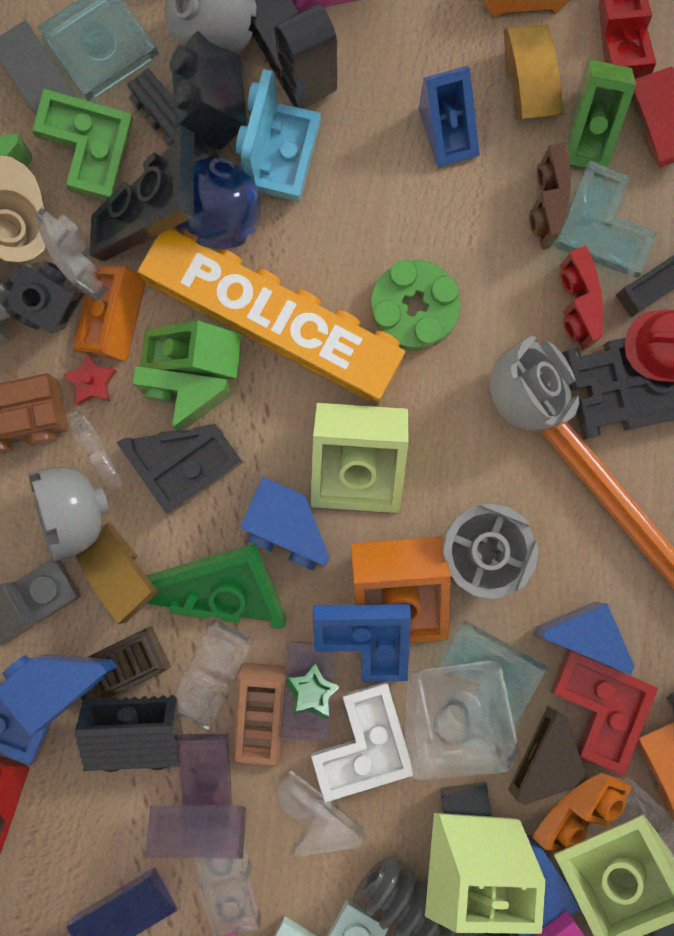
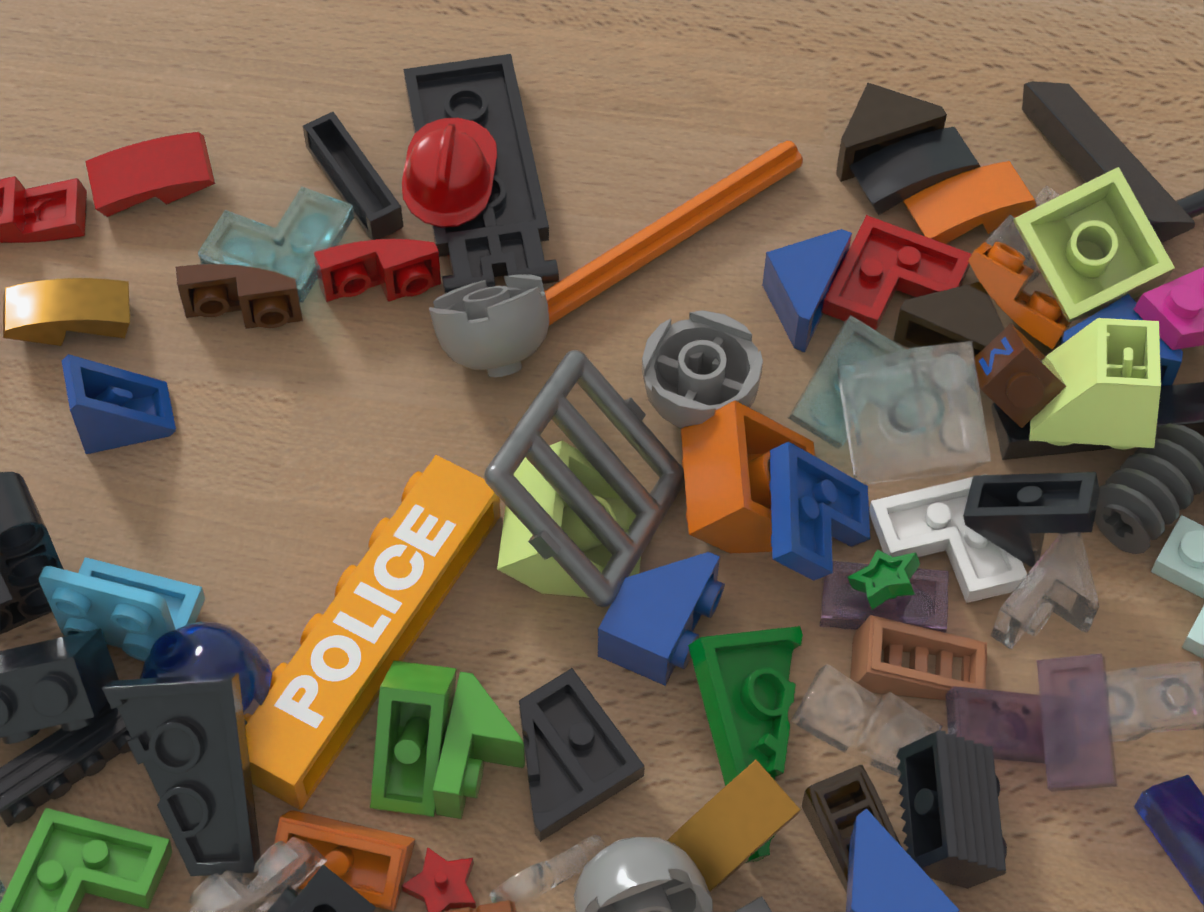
camera: 90 degrees left, 25 degrees down
(372, 811) = (1021, 508): none -> black slope
(387, 412) = (648, 507): none -> flat silver bar
(438, 294) = (357, 432): bright green plate -> none
(491, 807) = (1017, 375): none -> reddish brown brick
(599, 112) = (132, 237): bright green slope -> none

